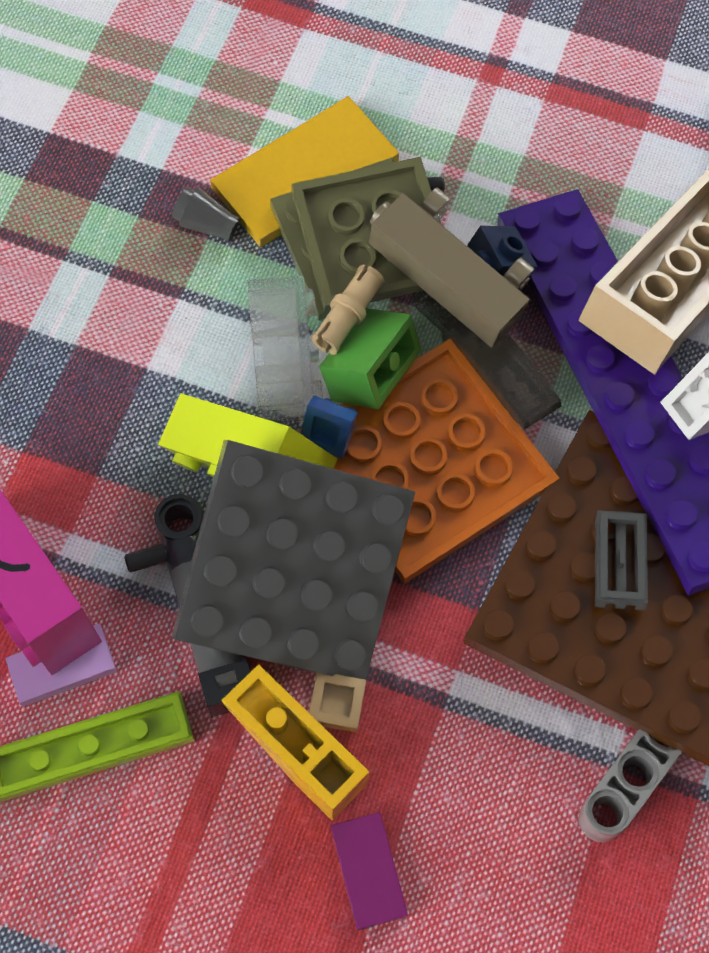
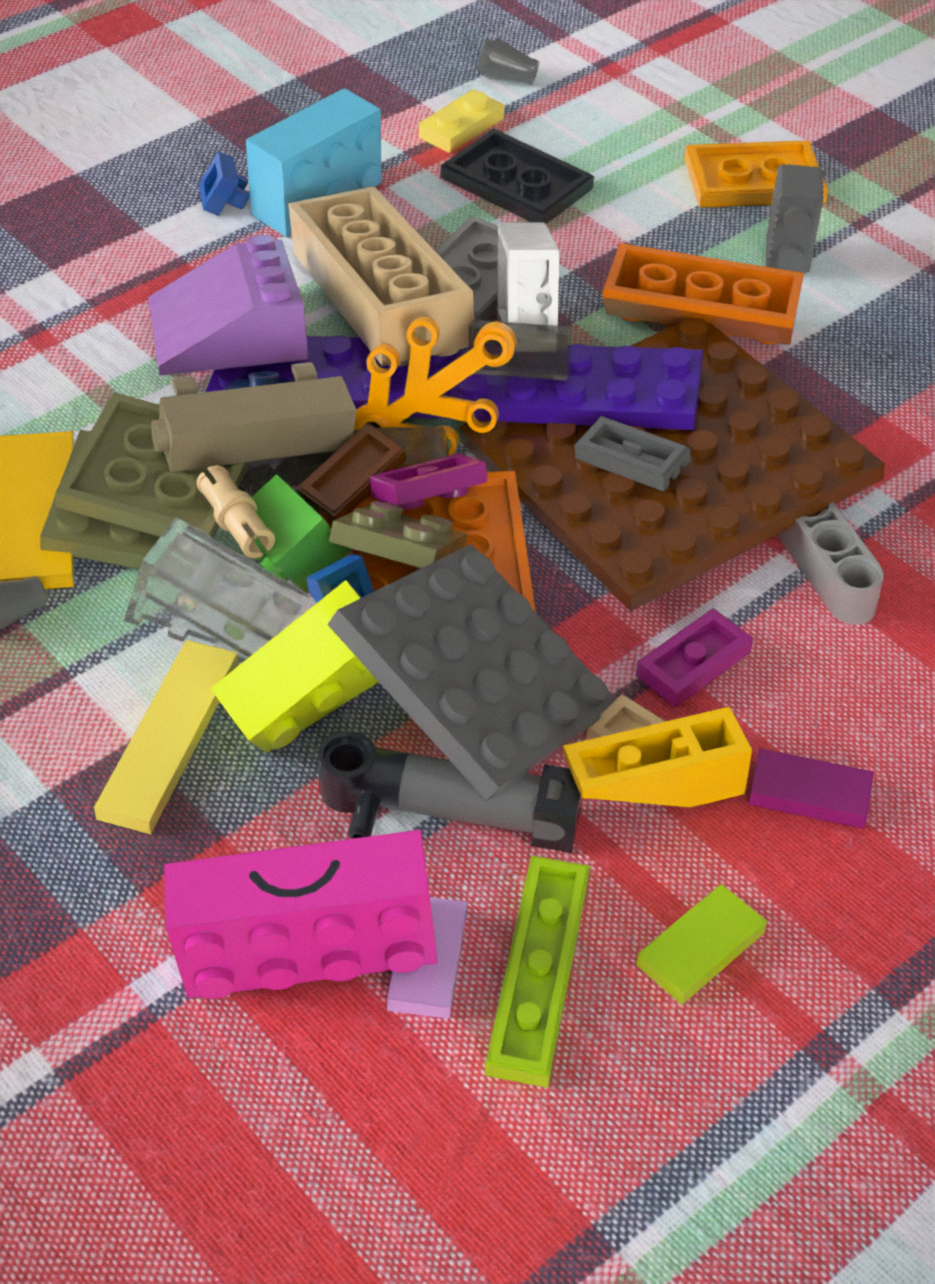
camera: 60 degrees left, 20 degrees down
(156, 388) = (165, 738): none -> light yellow tile
(169, 853) = (701, 943): none -> lime tile
(401, 436) = (389, 534): none -> olive plate
(448, 716) = (694, 657): none -> magenta plate
(460, 364) = (344, 477): none -> reddish brown tile
(485, 422) = (442, 477): none -> magenta plate
(547, 351) = (425, 393): none -> light orange plant
(582, 180) = (231, 312): none -> medium lavender slope
(660, 412) = (539, 352): none -> clear smoke tile

